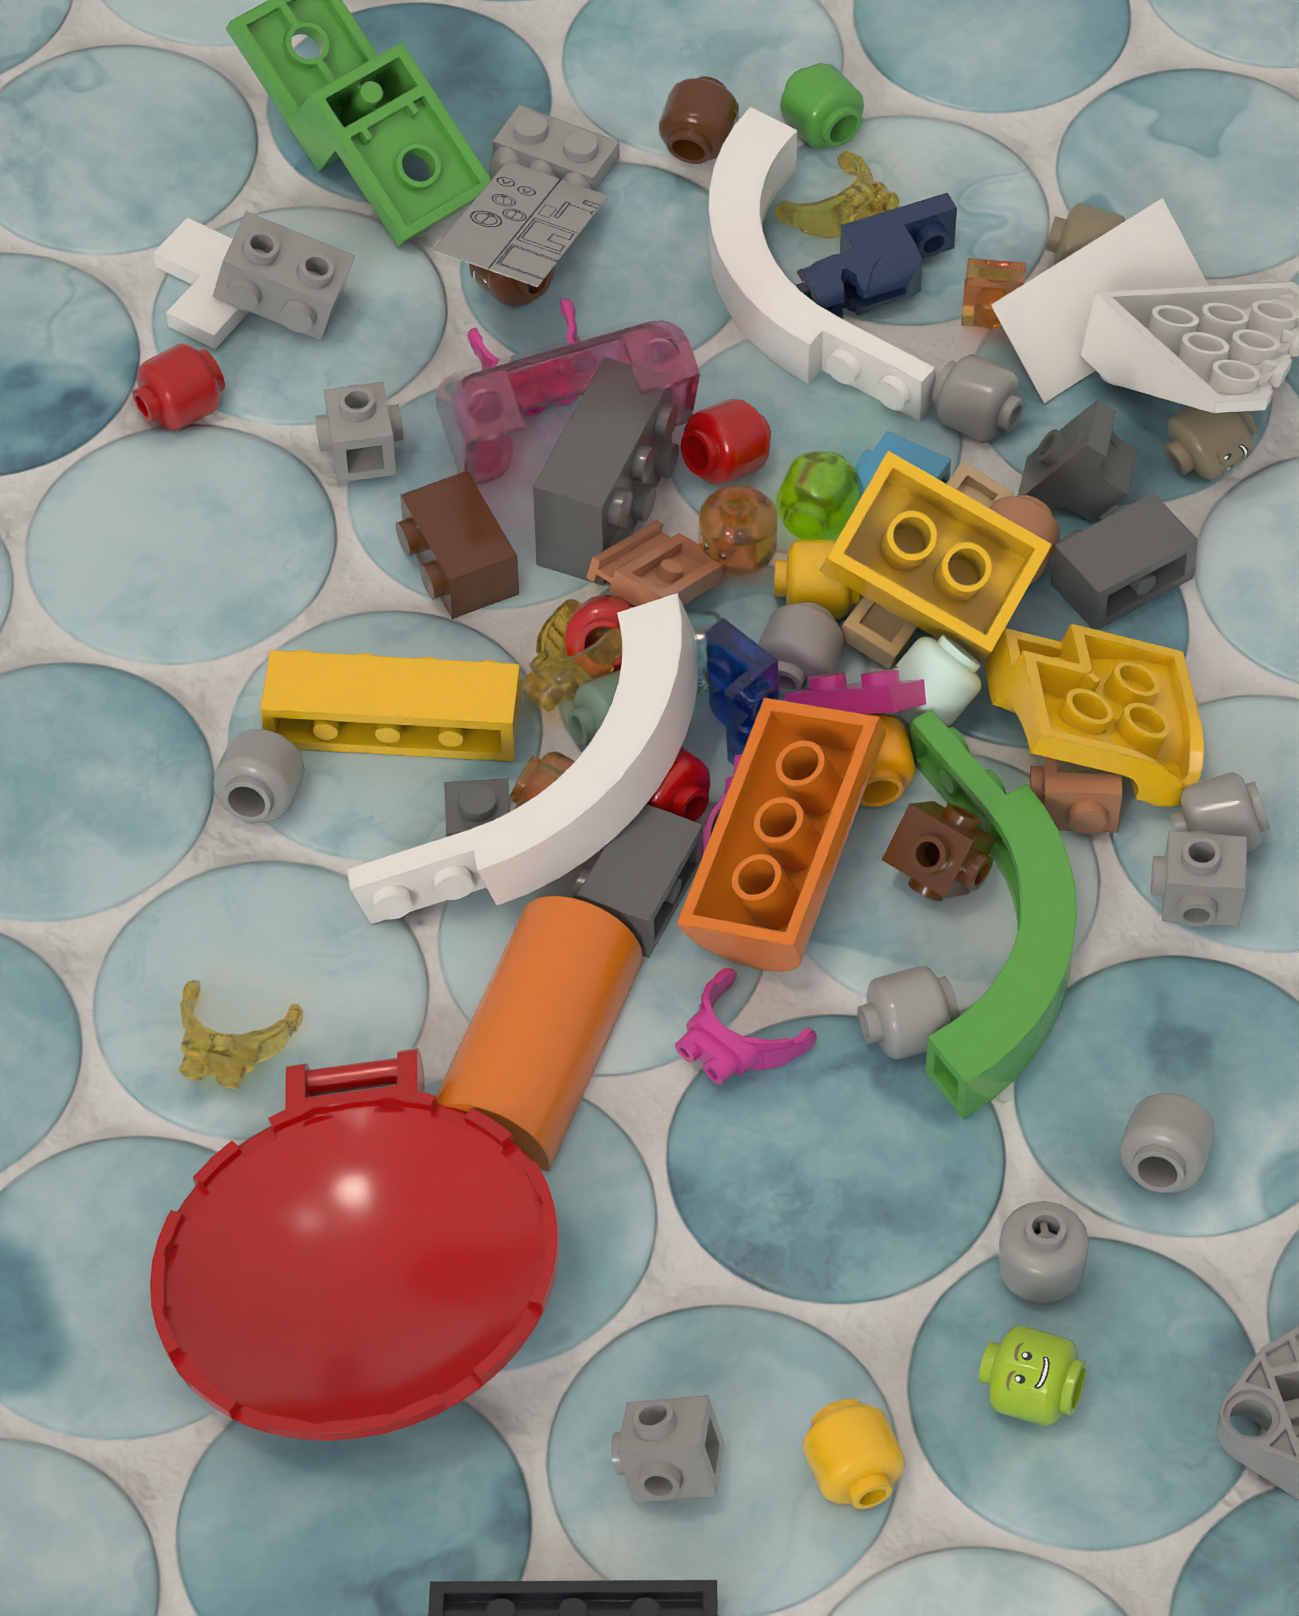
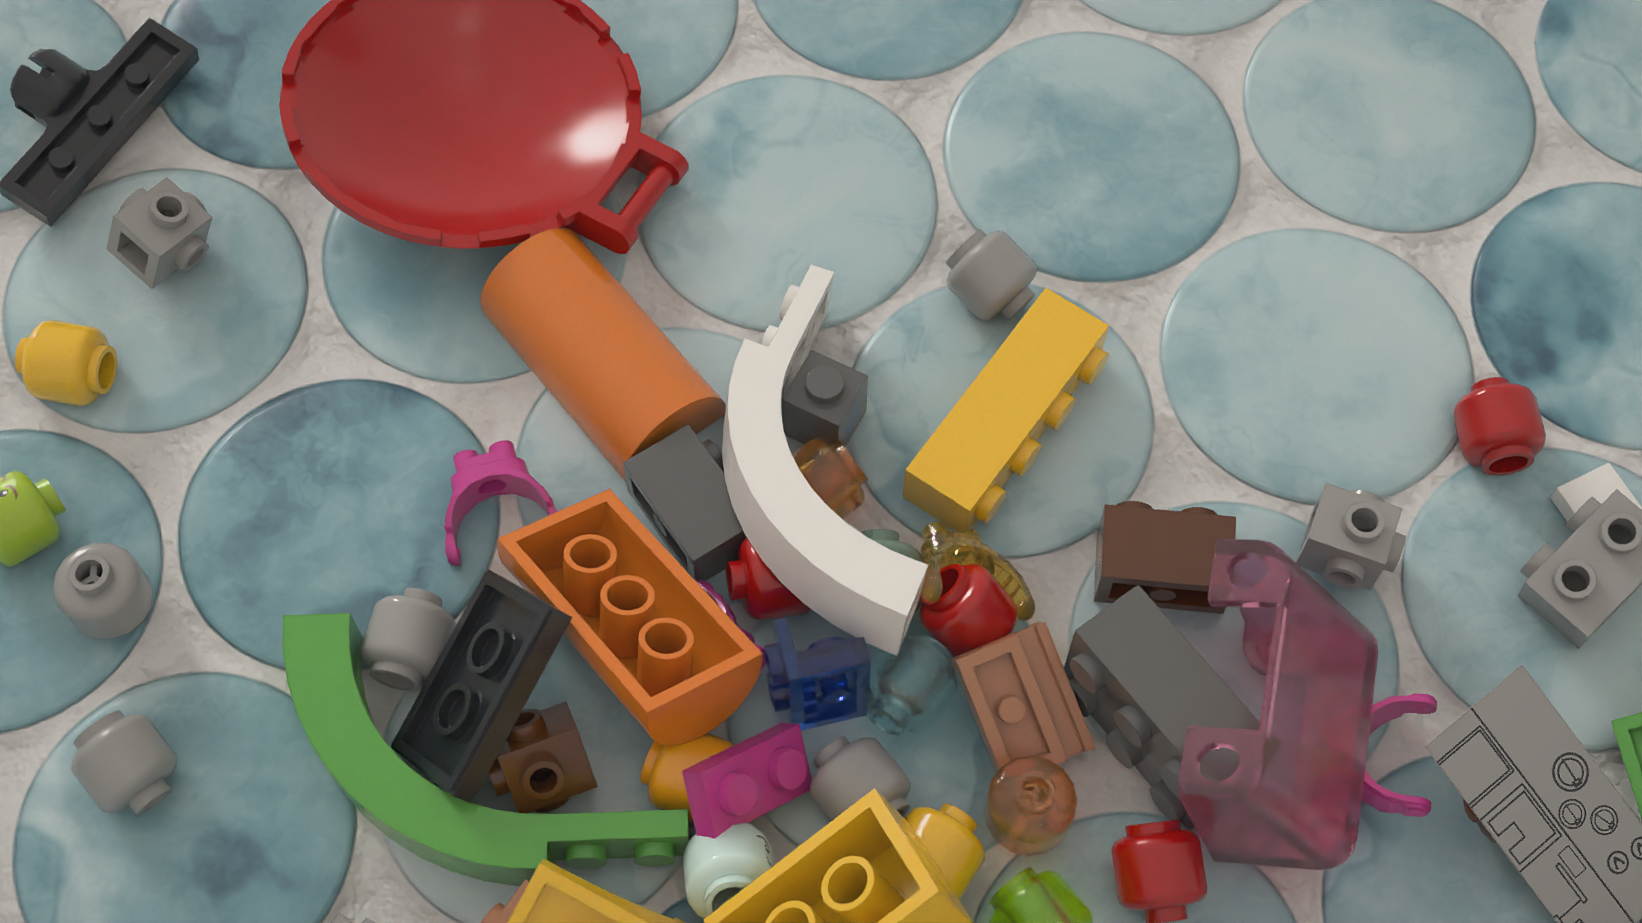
camera: 120 degrees right, 10 degrees up
(229, 1054) = (746, 127): clear yellow helmet -> none
(919, 899) = (480, 685): none -> black tile

